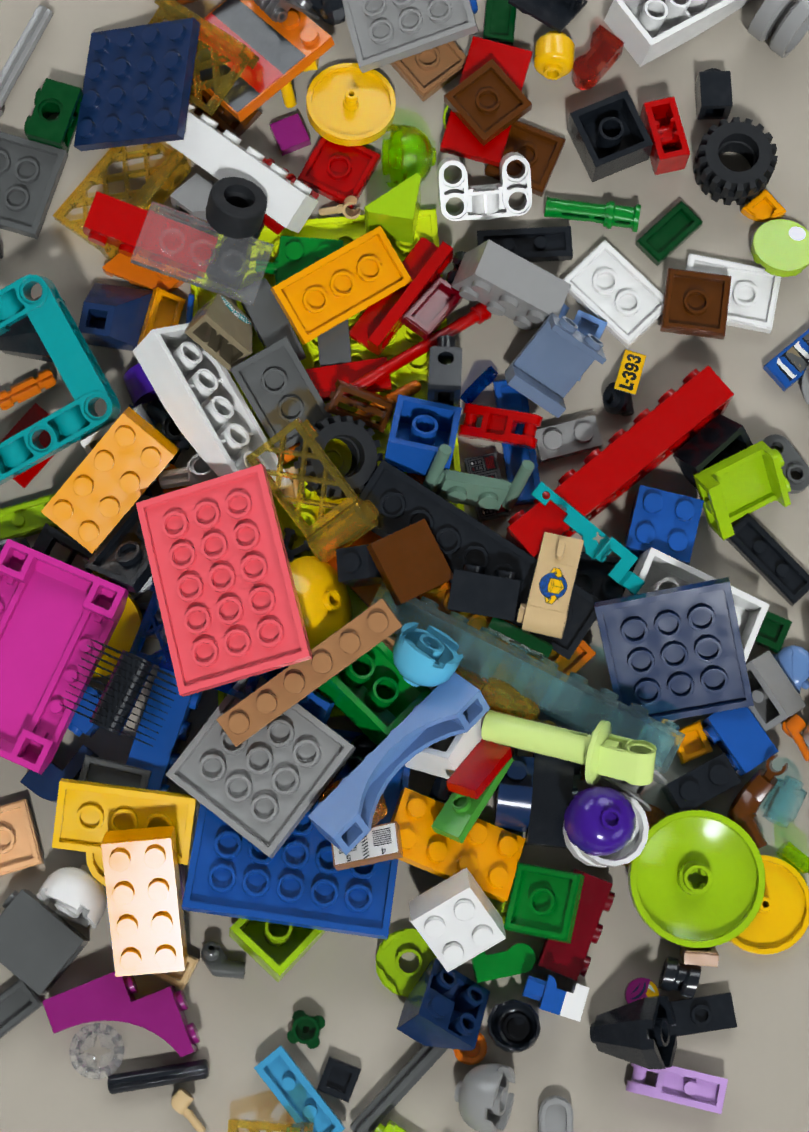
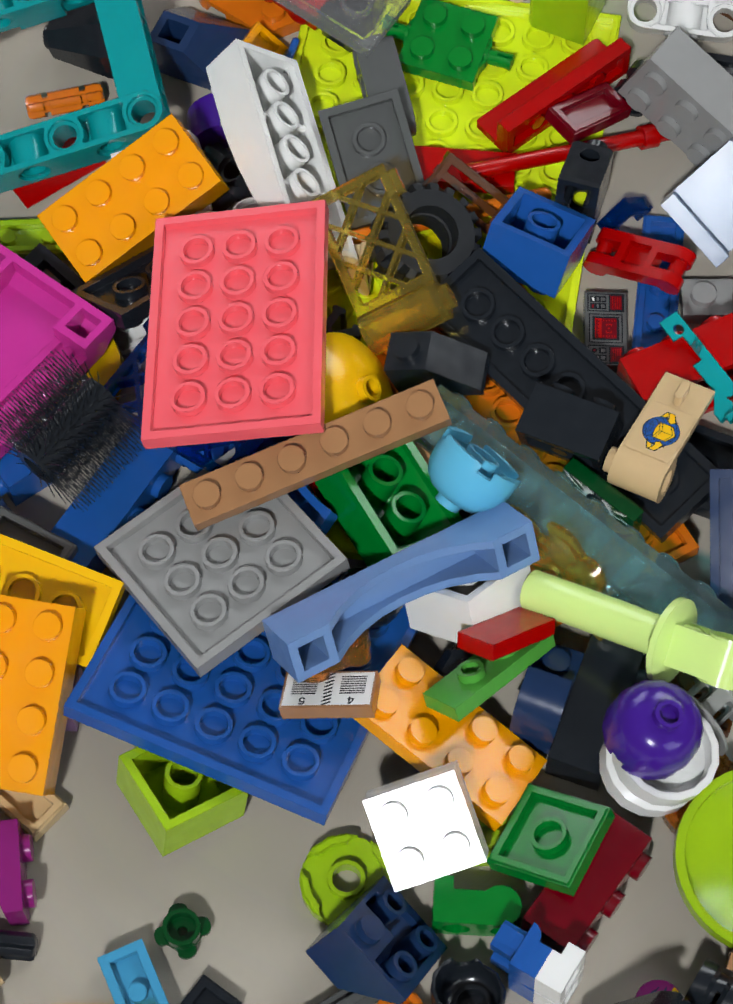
camera: 15 degrees right, 15 degrees down
(219, 964) = (92, 818): dark grey arm -> none
(222, 331) = (320, 71): dark tan torso -> none
(335, 345) = (457, 114): dark grey tile -> none
(341, 285) = (481, 58): light orange plate -> none
(410, 562) = (481, 367): reddish brown tile -> none
(472, 488) = (589, 316): sand green plate -> none

